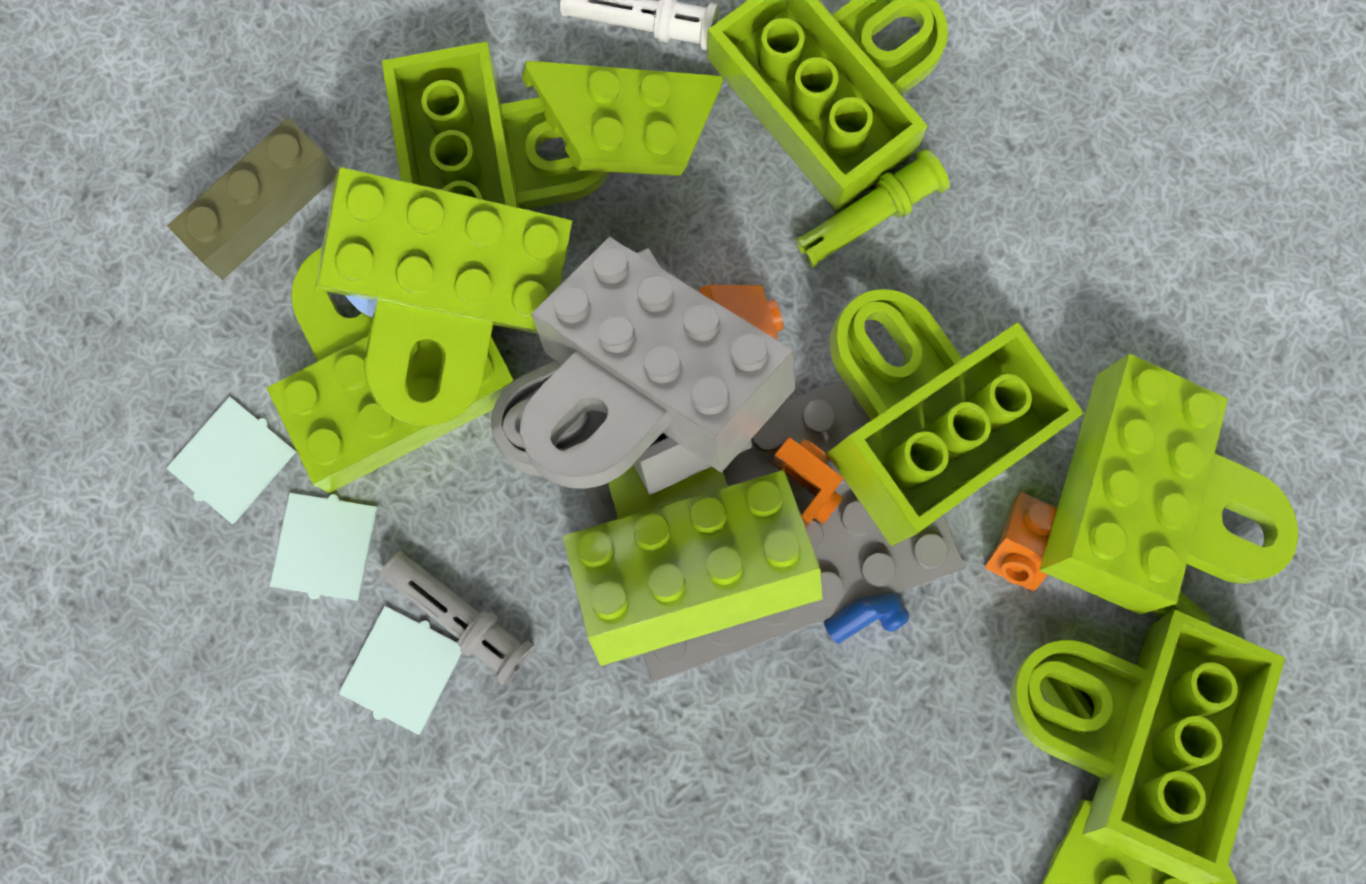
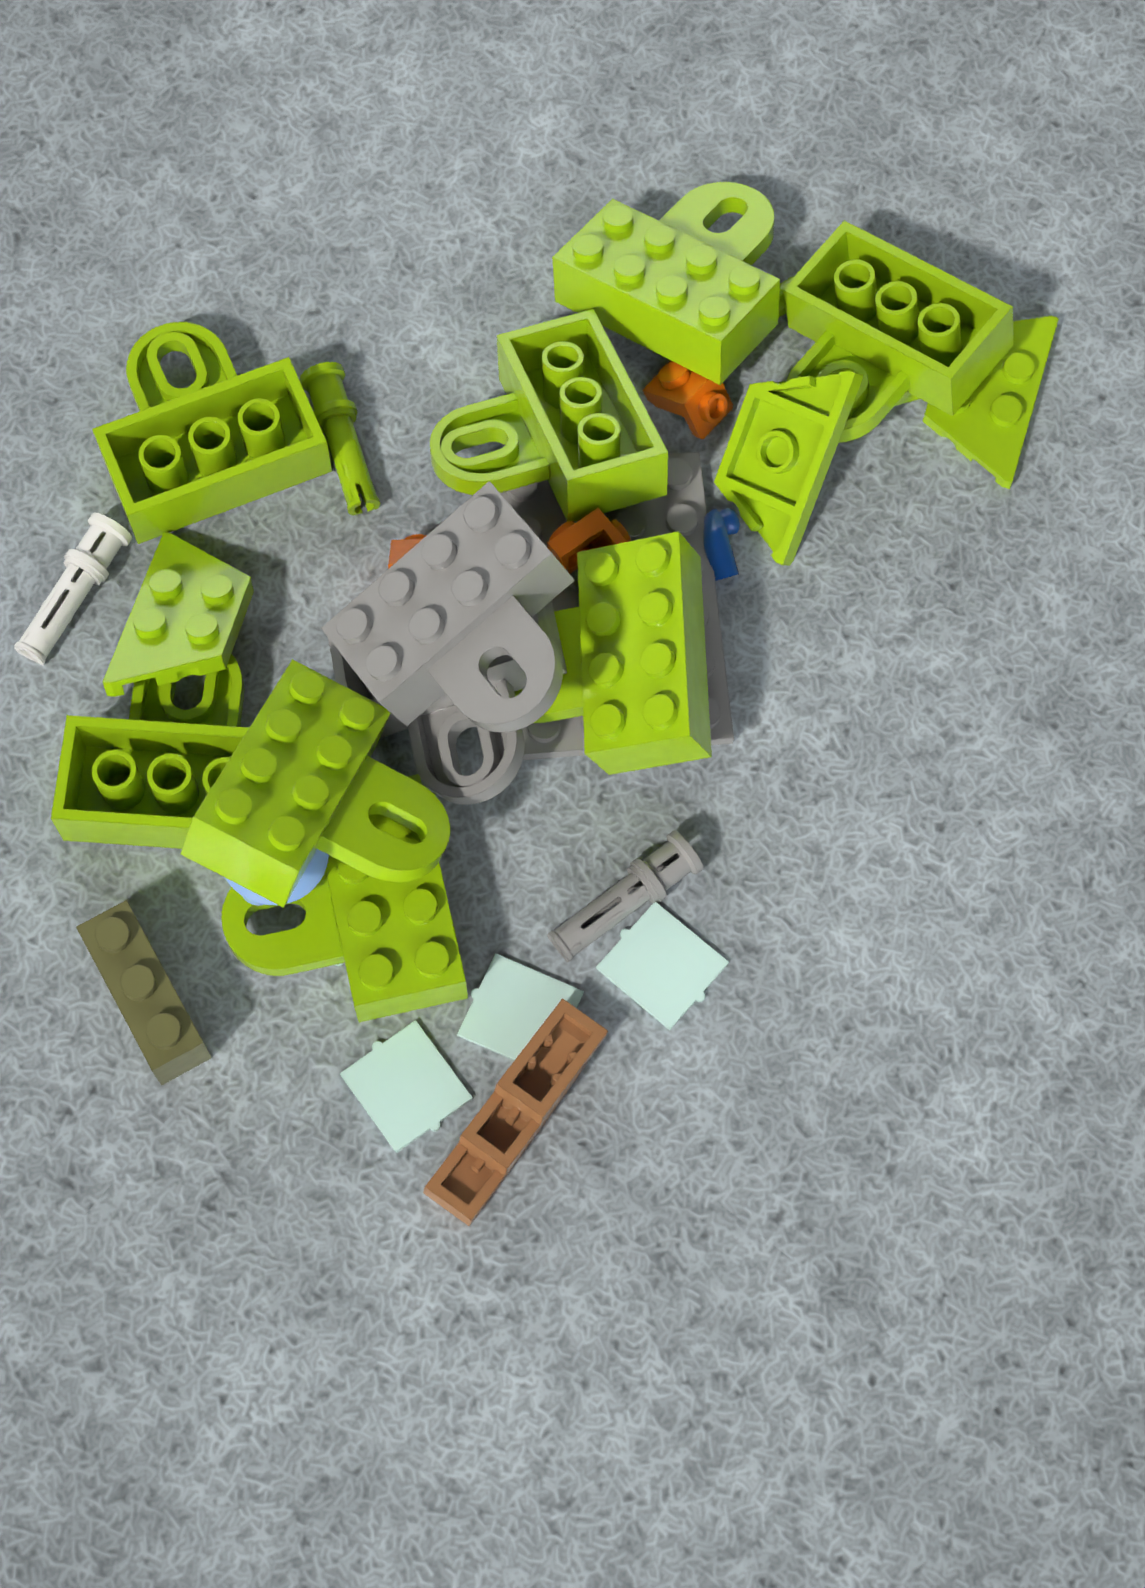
camera: 80 degrees left, 10 degrees down
(220, 568) = (515, 1112): none -> medium nougat slope
(980, 658) = (783, 454): none -> lime wing

